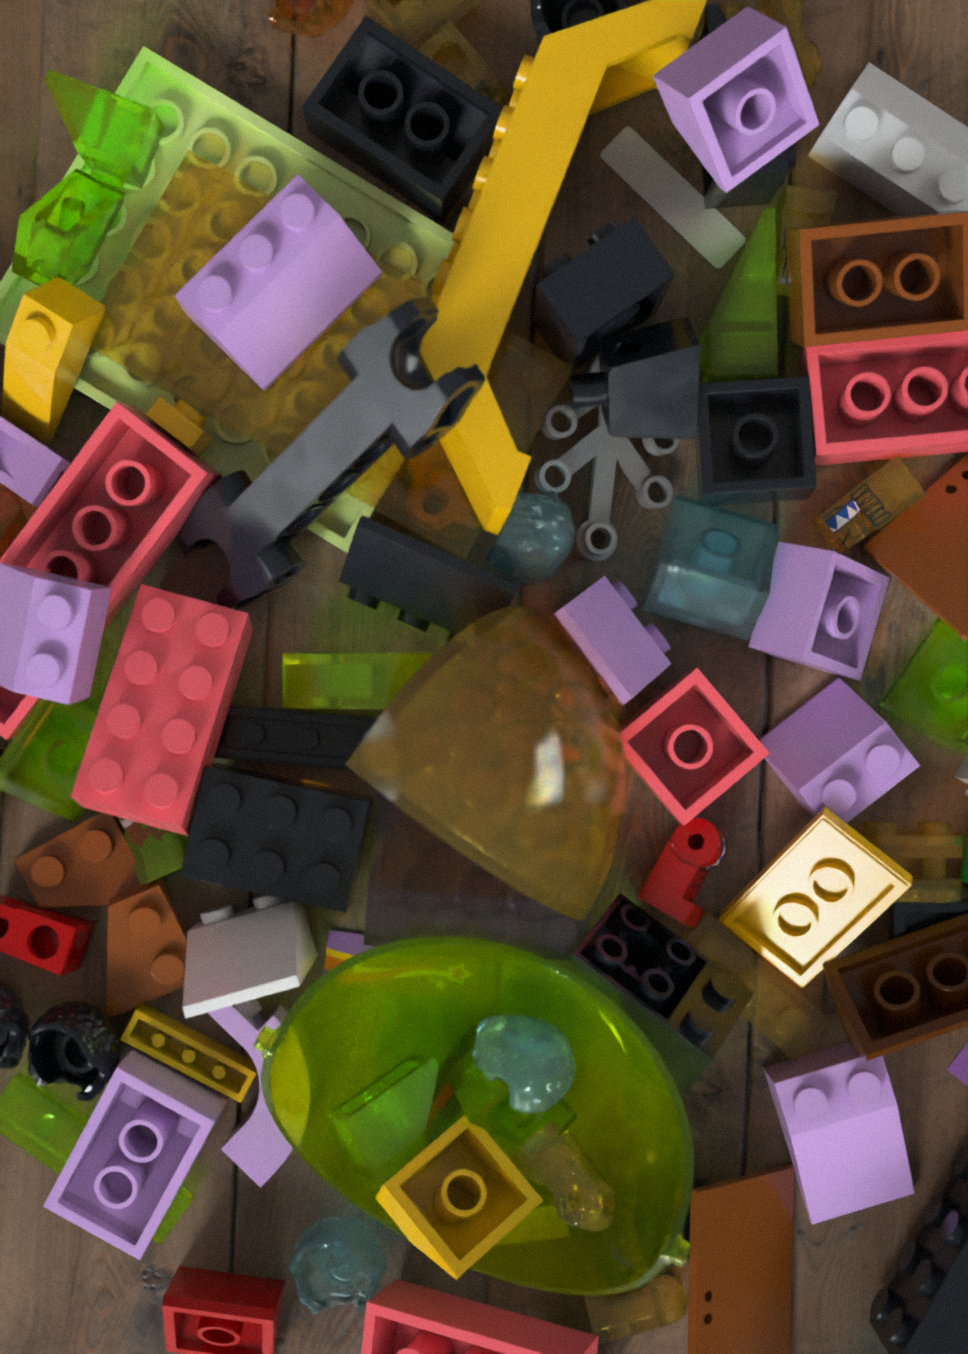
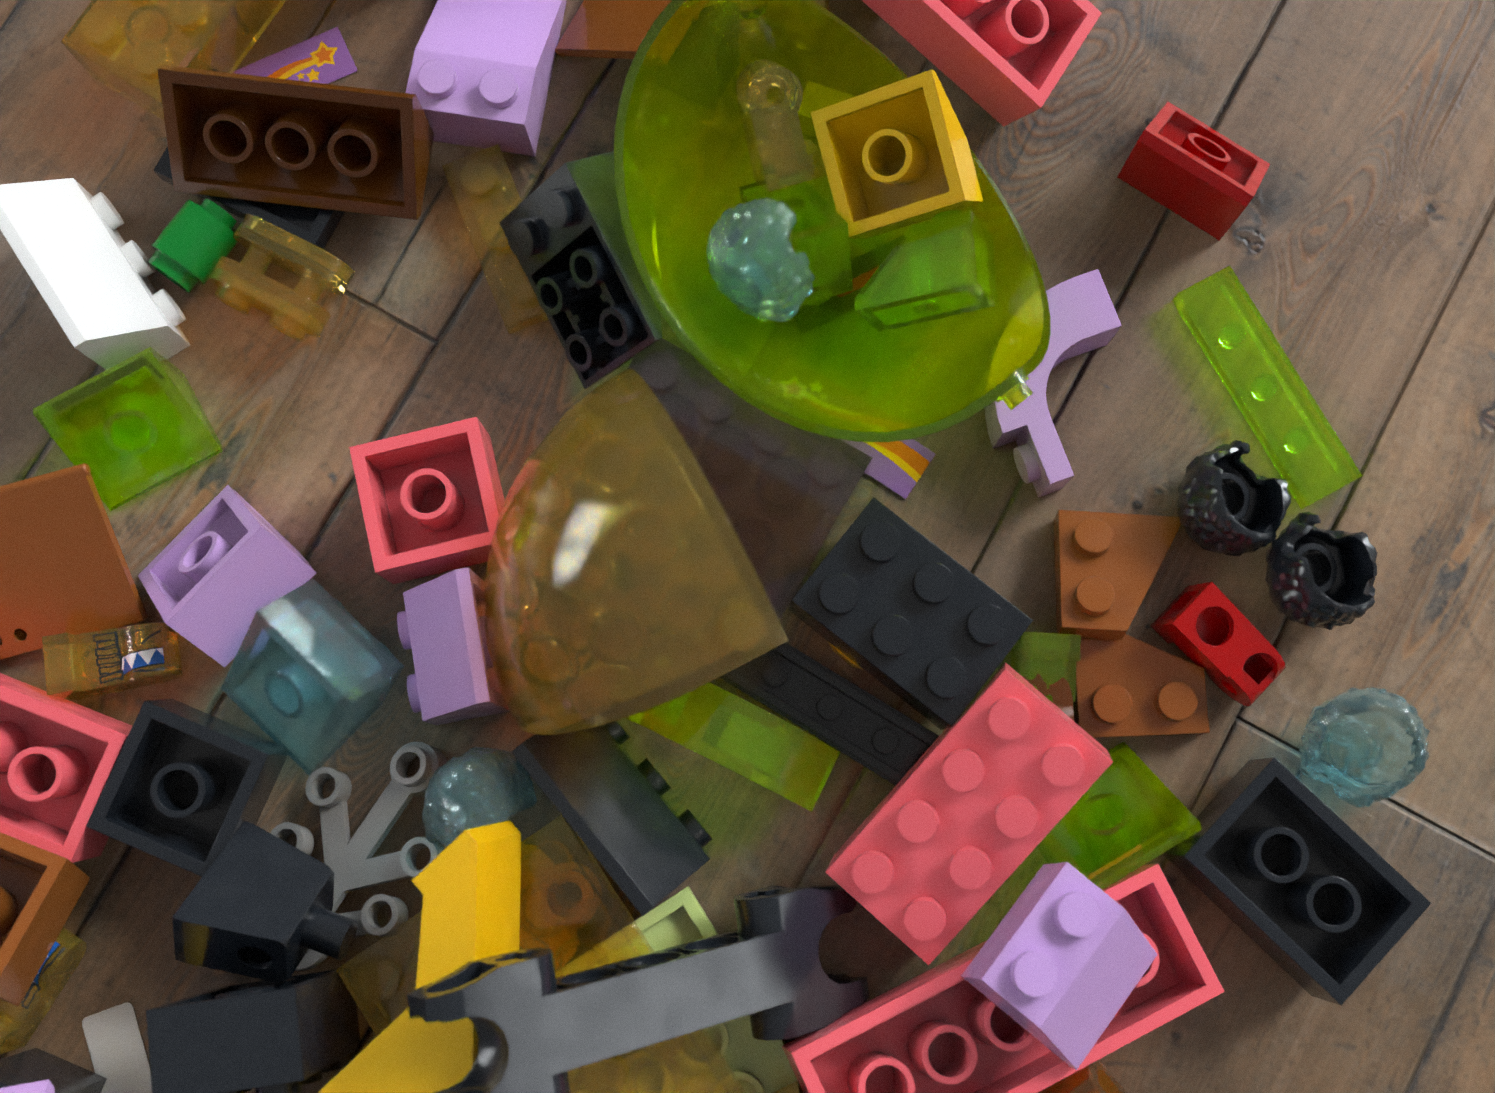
camera: 150 degrees left, 10 degrees down
(135, 1152) = (1210, 365): lavender slope -> none
(190, 1052) = (1109, 441): yellow piece -> none
(246, 954) = (1003, 503): white slope -> none
(337, 1264) = (1054, 163): clear light blue hair -> none
(683, 868) = (507, 380): red leg -> none
(742, 328) = (117, 941): clear neon green slope -> none
(815, 897) = (386, 286): tile -> none
(837, 753) = (288, 416): lavender slope -> none

